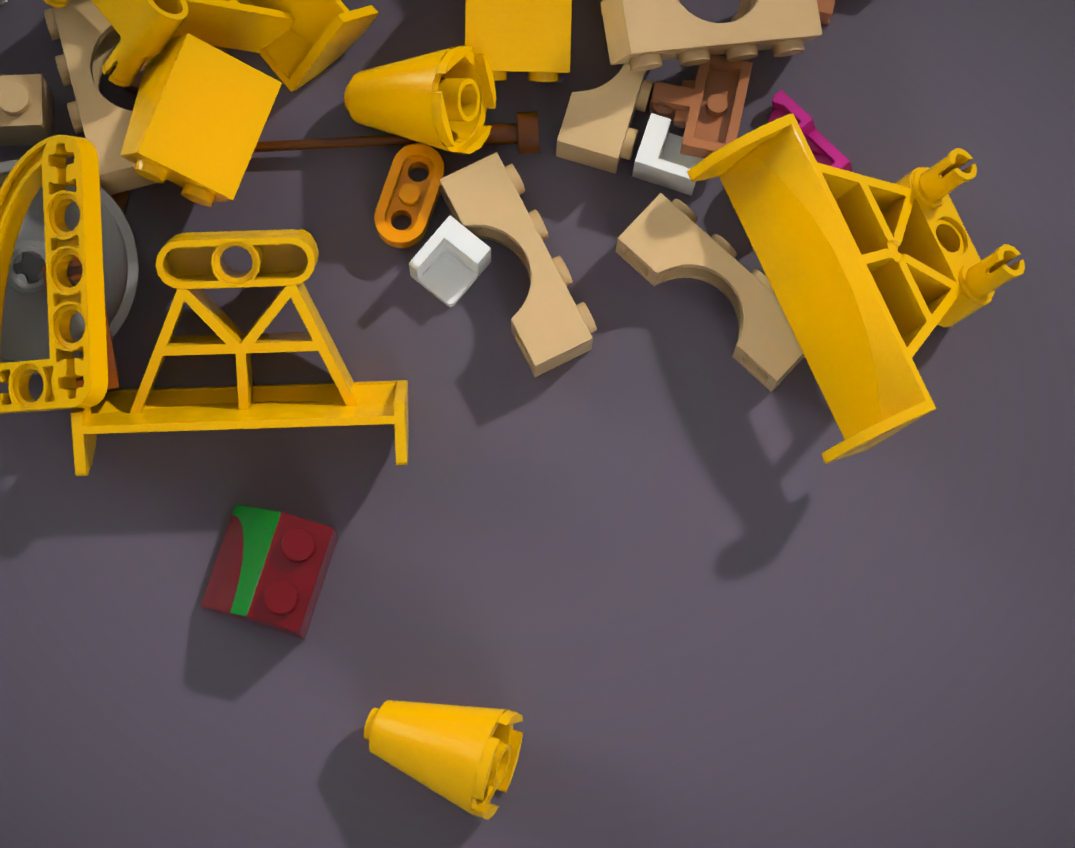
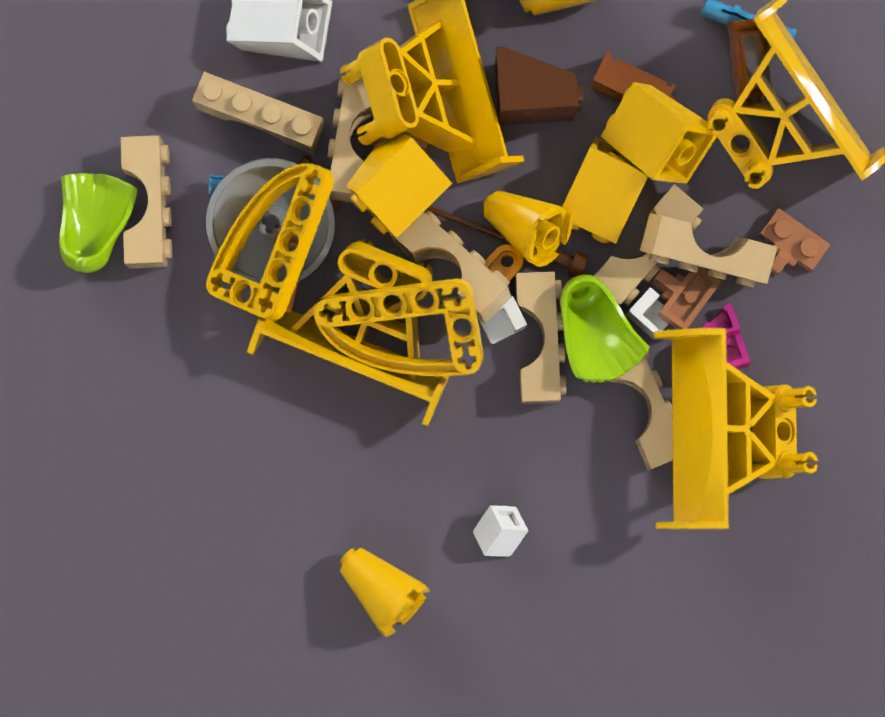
camera: 25 degrees right, 5 degrees up
(270, 569) = (328, 447): dark red slope -> none
(299, 294) = (410, 308): none -> yellow beam
(397, 222) = (427, 240): none -> tan arch
(590, 579) = (500, 531): none -> white panel
(602, 210) = (596, 332): none -> lime hair

